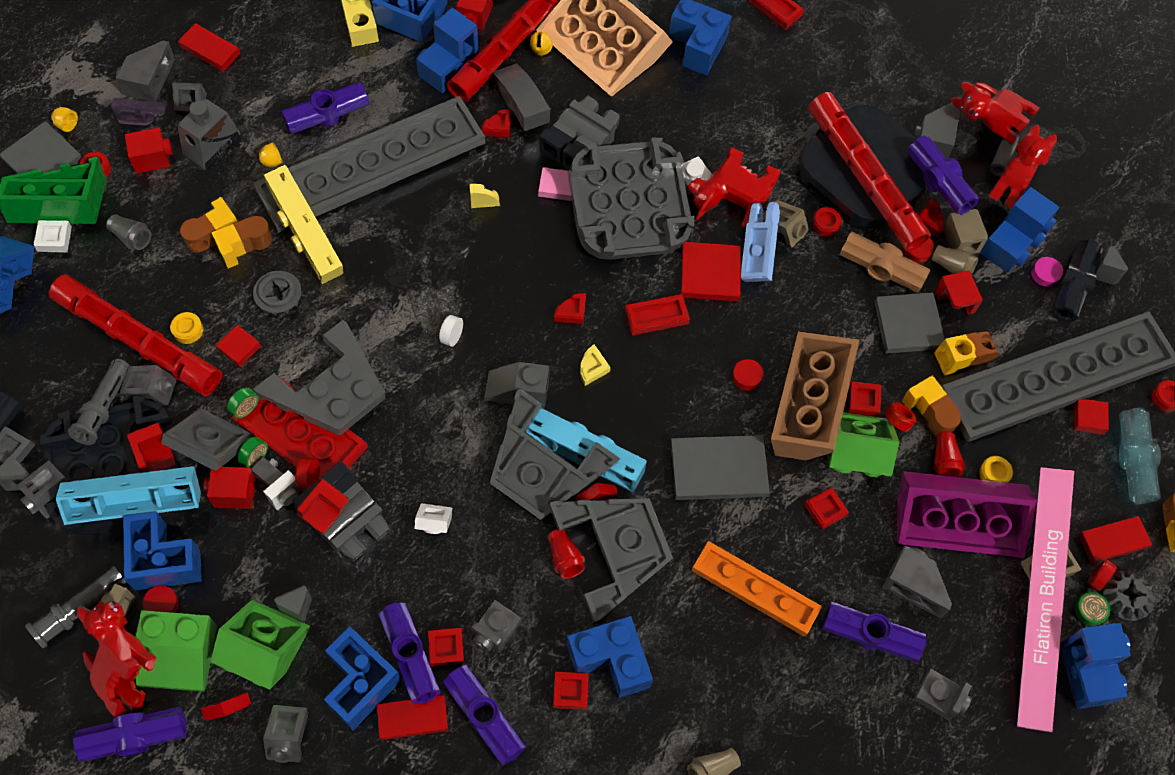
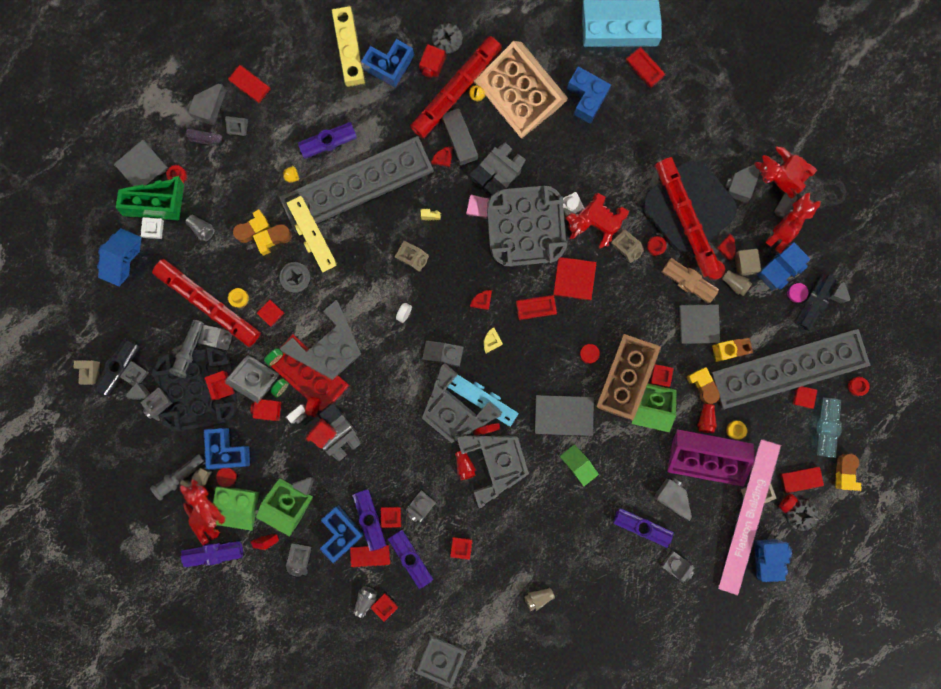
camera: 10 degrees right, 20 degrees up
(64, 119) = (154, 138): yellow hinge -> none
(121, 494) = (199, 416): medium azure piece -> none
(148, 150) = (211, 167): red brick -> none
(206, 132) = (249, 158): dark grey torso -> none
(267, 471) = (288, 400): flat silver piece -> none
(433, 518) = (387, 438): white plate -> none
(453, 46) = (413, 101): blue brick -> none
(460, 251) = (412, 256): none -> dark tan bracket
(615, 647) = (489, 526): blue brick -> none
(755, 541) = (579, 465): none -> bright green slope
(756, 588) = (577, 495): orange plate -> none
(760, 243) = (609, 263): light blue hinge -> none
(826, 508) = (626, 446): red tile -> none
(900, 416) = (682, 391): red tile -> none
(942, 175) = (737, 223): dark purple piece -> none
(960, 290) = (735, 307): red panel -> none
(1092, 609) = (778, 522): tile -> none

